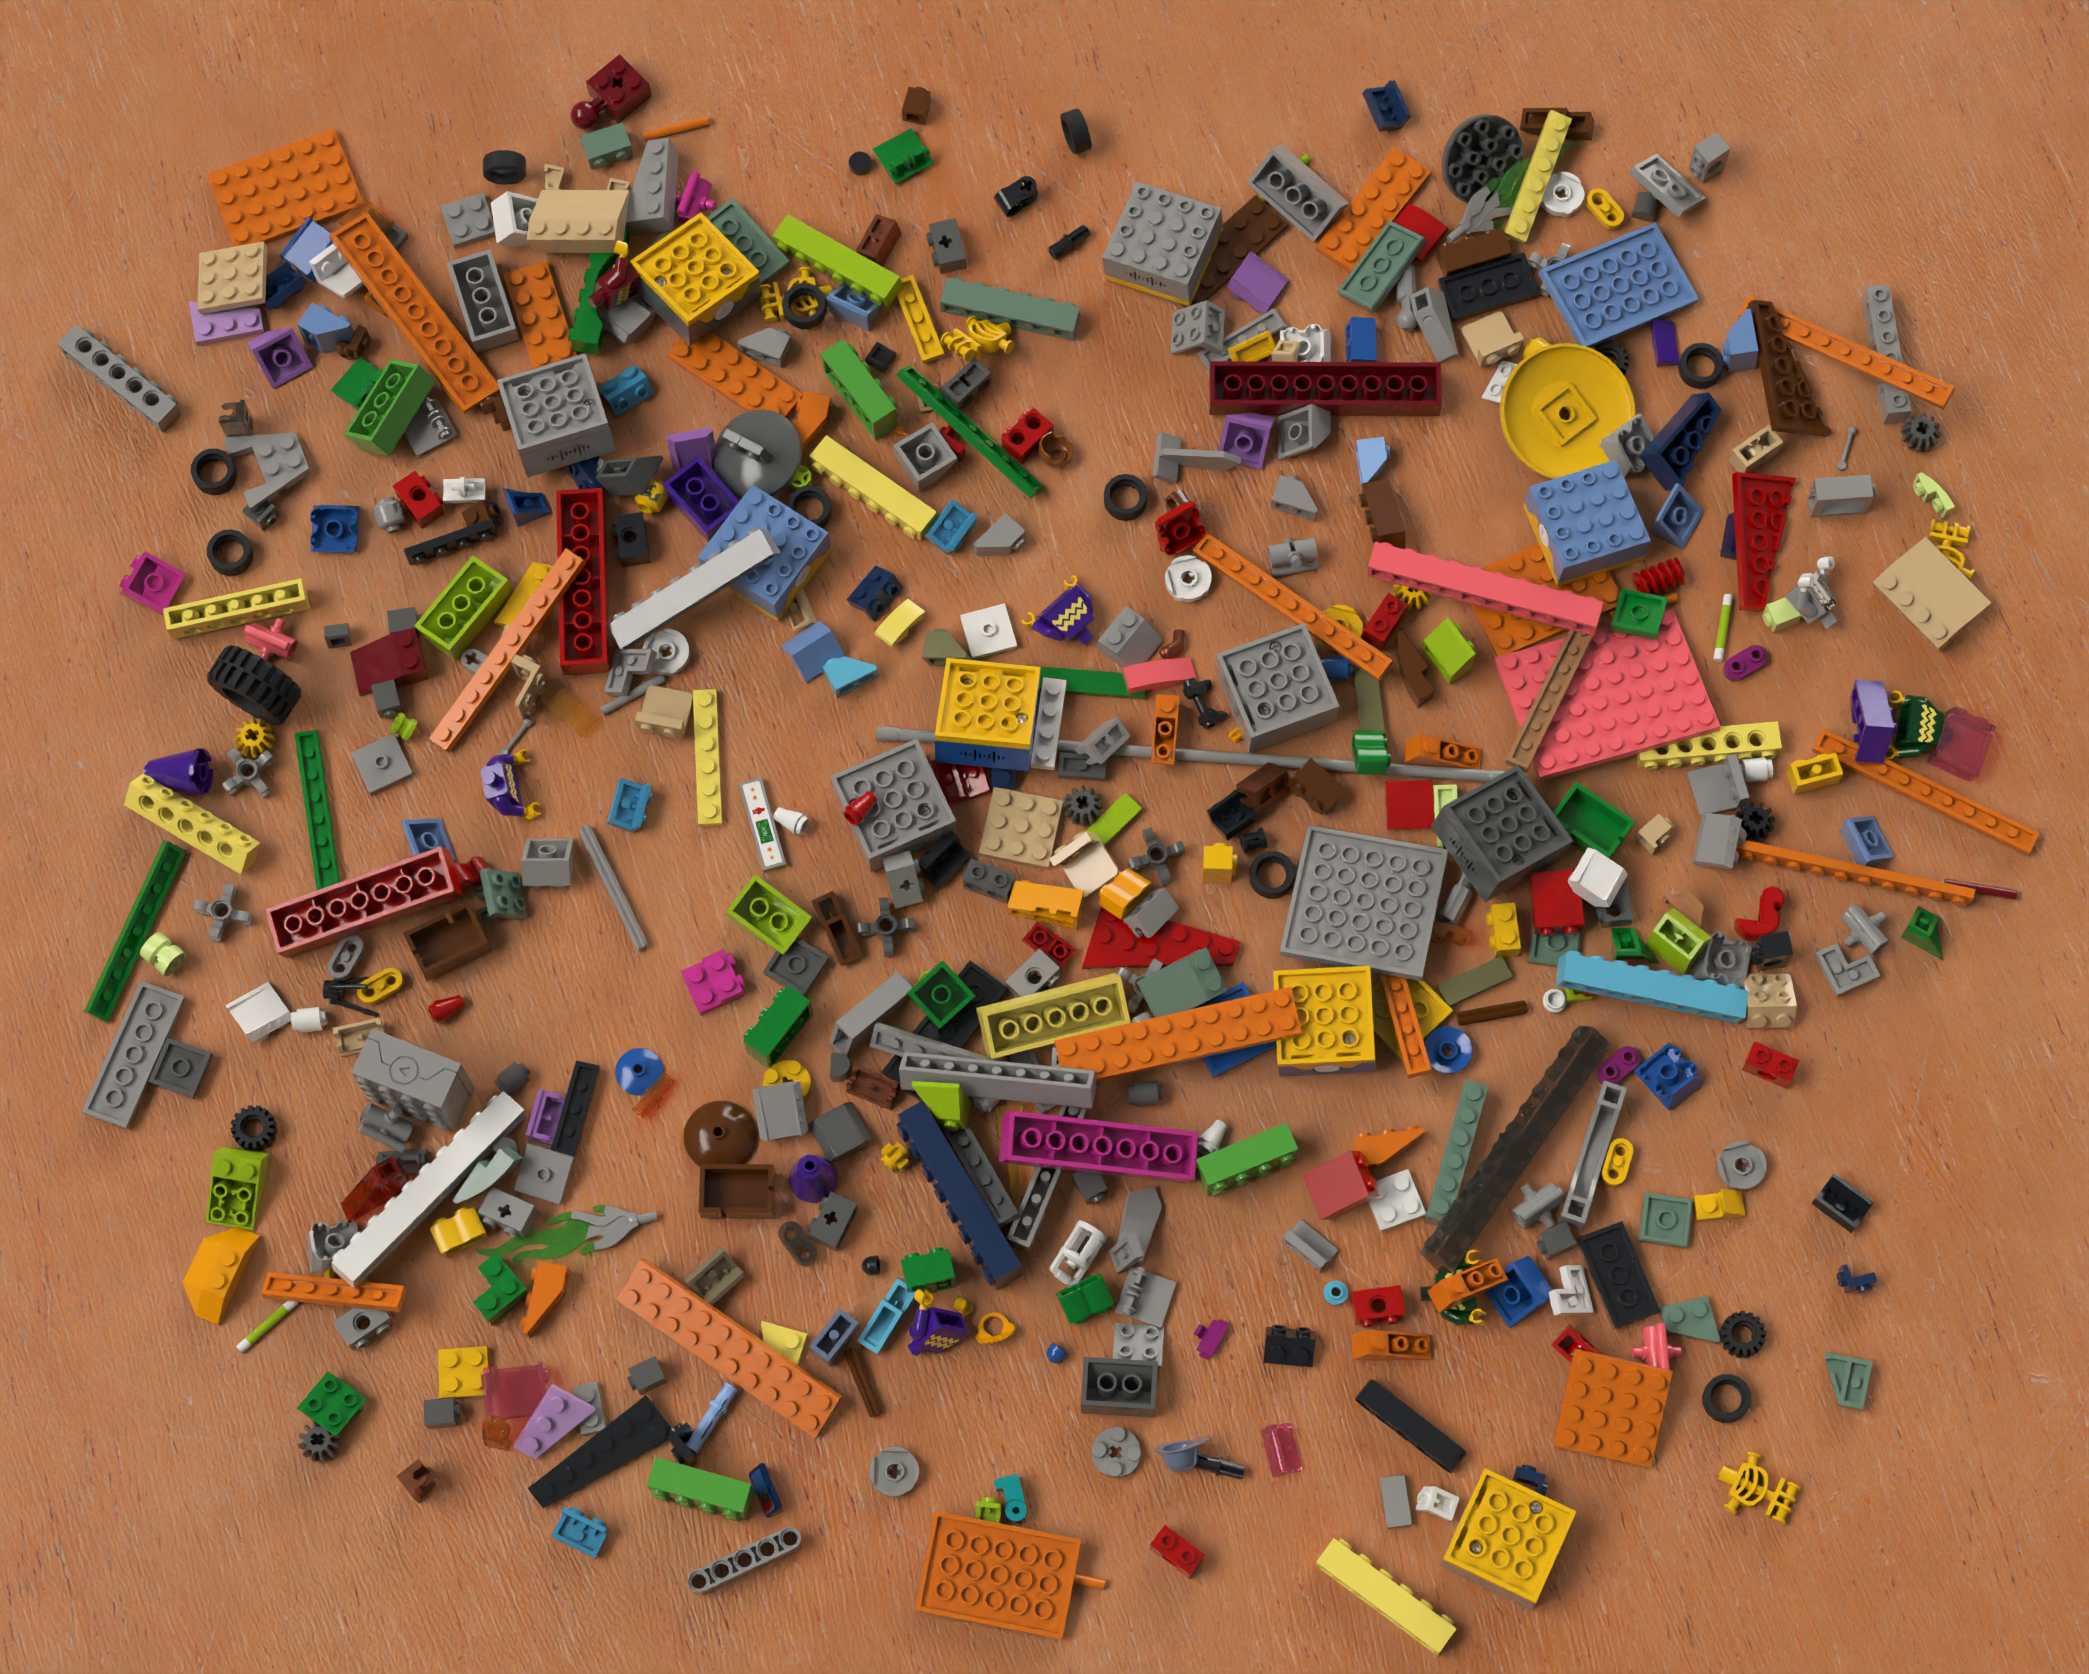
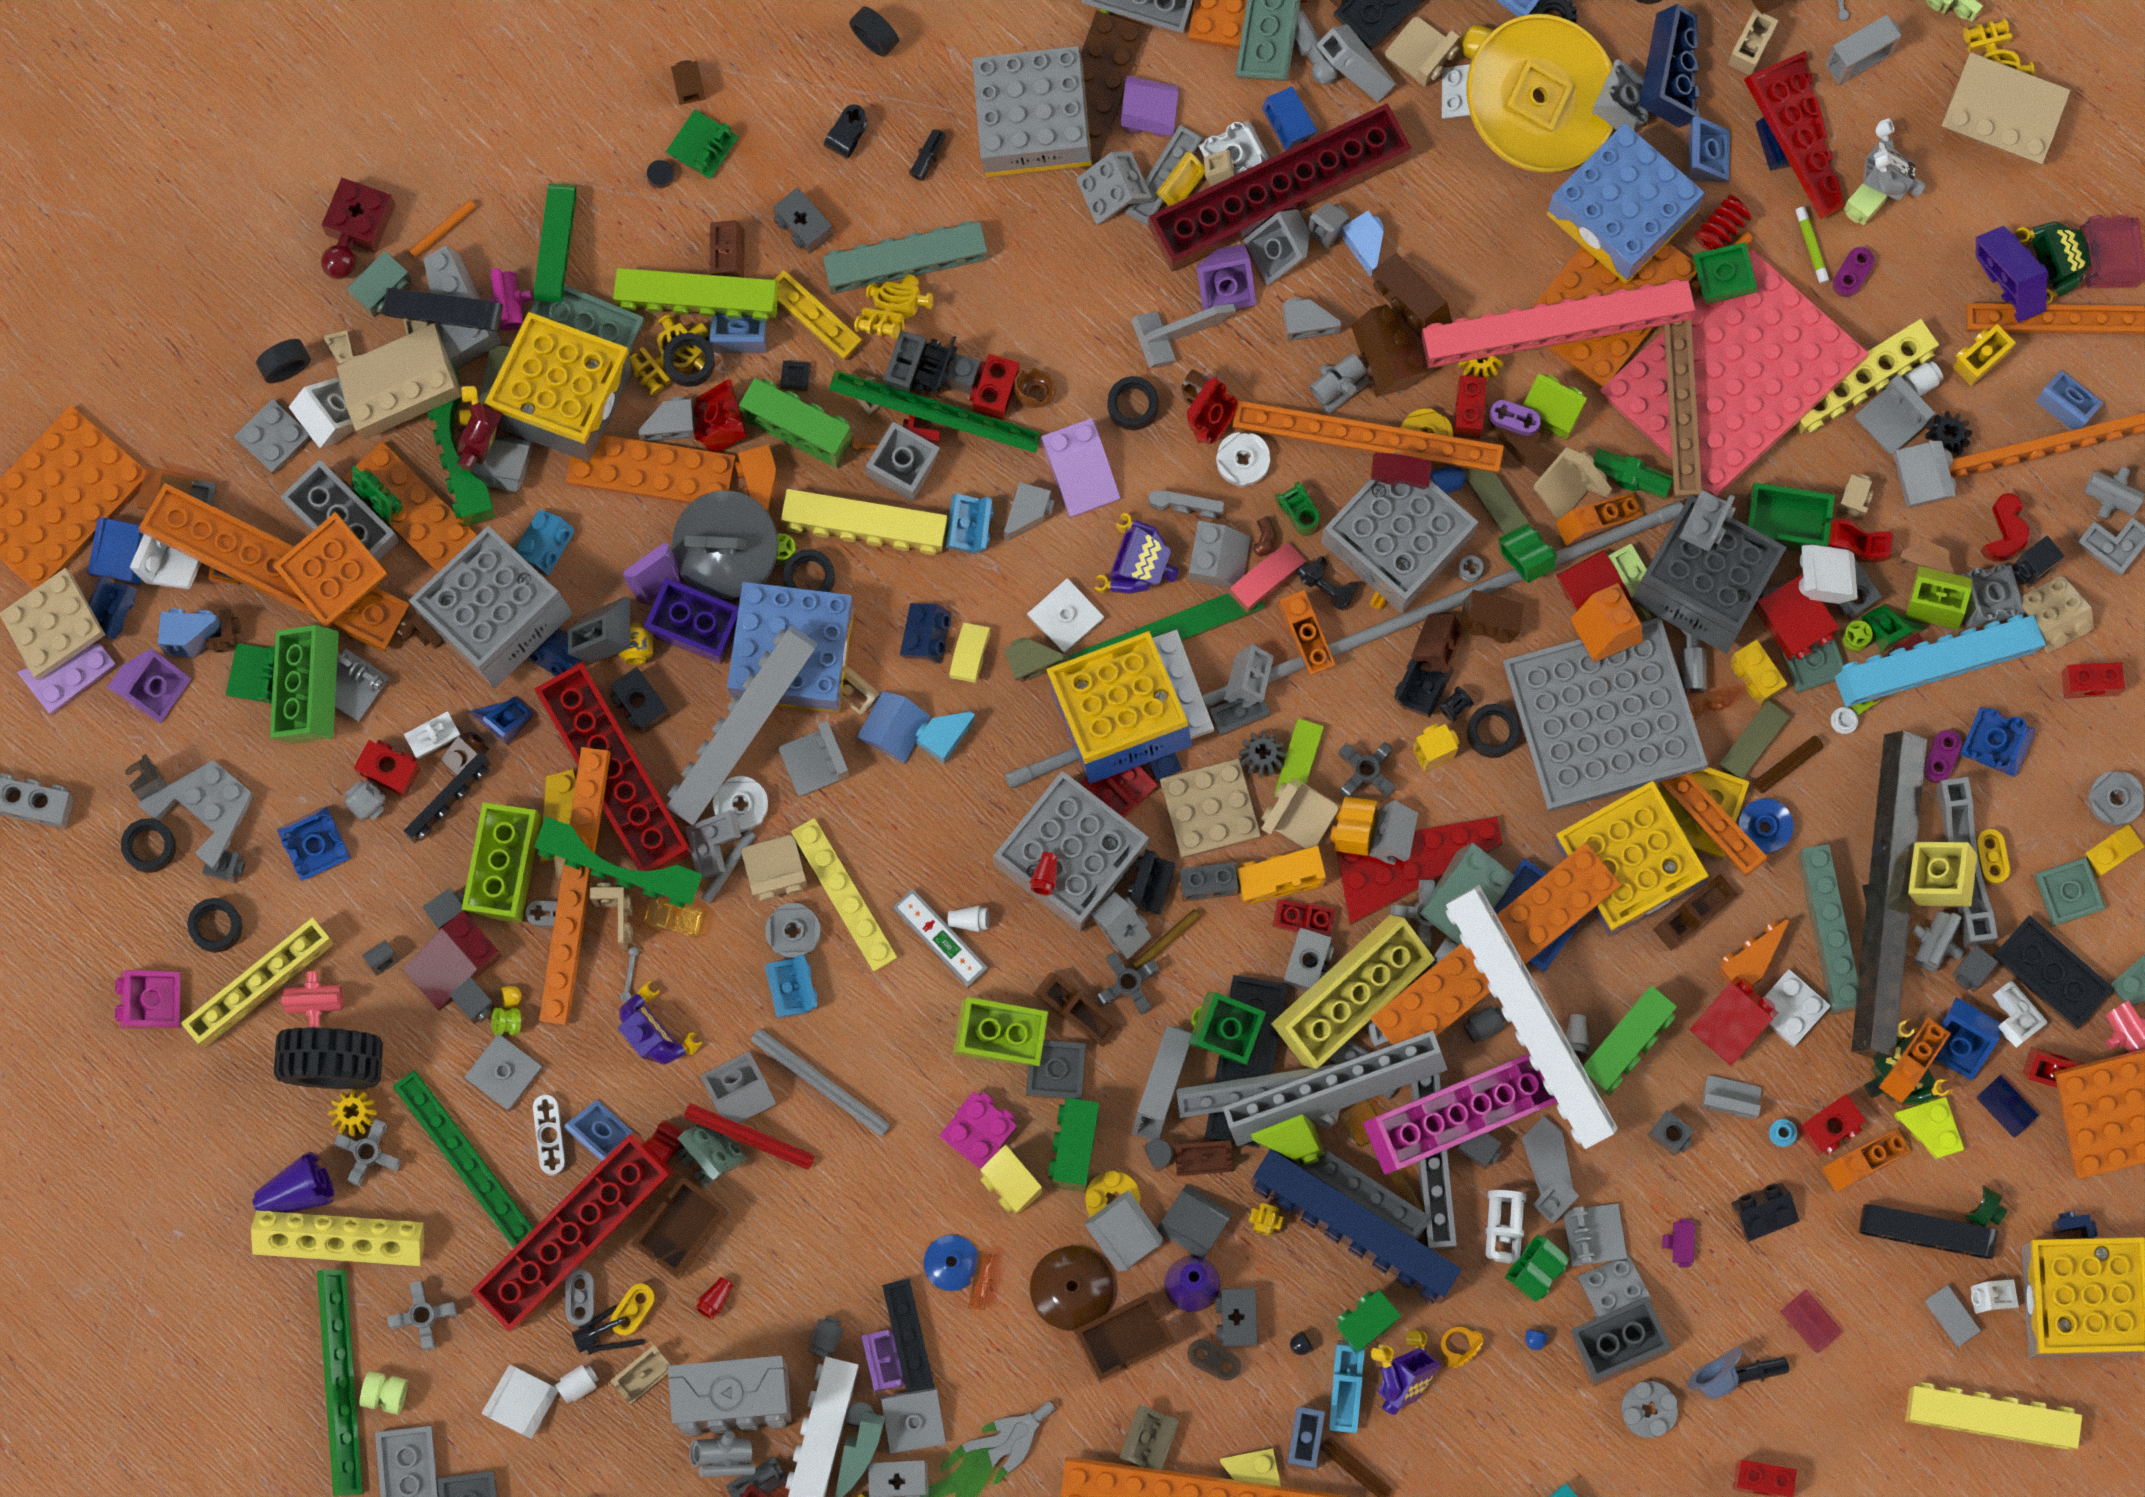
camera: 30 degrees left, 5 degrees up
(402, 813) = (553, 1114): none -> white beam
(418, 710) = (510, 996): none -> yellow hinge
(453, 332) = (331, 570): none -> orange plate
(514, 610) = (563, 841): none -> green arch
(517, 289) = (369, 488): none -> green hinge
(535, 899) = (748, 1136): none -> red axle
(639, 181) = (442, 309): none -> black beam
(649, 753) = (781, 919): none -> light grey plate
(715, 1030) = (1011, 1181): none -> light yellow slope
(739, 647) = (814, 761): none -> light grey bracket
(752, 175) = (555, 243): none -> green beam
(804, 360) = (718, 418): none -> red slope
(936, 909) = (1166, 939): none -> pearl gold bar
(993, 392) = (936, 357): none -> black hinge
(1006, 413) = (963, 373): none -> dark grey brick
(1059, 526) = (1080, 468): none -> lavender slope
(1125, 590) = (1185, 503): none -> light grey hinge
(1176, 1098) = (1531, 1017): none -> white brick
(1210, 633) = (1297, 504): none -> green piece
(1243, 1238) = (1667, 1121): none -> dark grey brick
(1299, 636) = (1403, 469): none -> dark red slope
(1314, 747) = (1465, 575): none -> light grey bush
(1342, 550) = (1388, 351): none -> reddish brown wedge
(1346, 431) = (1327, 223): none -> light grey slope
(1356, 1089) = (1695, 912): none -> reddish brown slope
(1402, 834) = (1607, 623): none -> orange slope
(1409, 648) = (1513, 424): none -> medium lavender beam
(1431, 713) = (1569, 480): none -> tan bracket
(1458, 1348) = (1933, 1126): none -> neon yellow wing
(1468, 1431) = (1988, 1209): none -> dark green piece
(1484, 731) = (1632, 473): none -> green piece
(1519, 788) = (1706, 520): none -> light grey bracket
(1527, 1361) = (2007, 1106): none -> clear blue slope
(1566, 1152) = (1942, 874): none -> light yellow brick
(1601, 936) = (1860, 630): none -> lime wheel
(1638, 870) = (1864, 545): none -> red animal

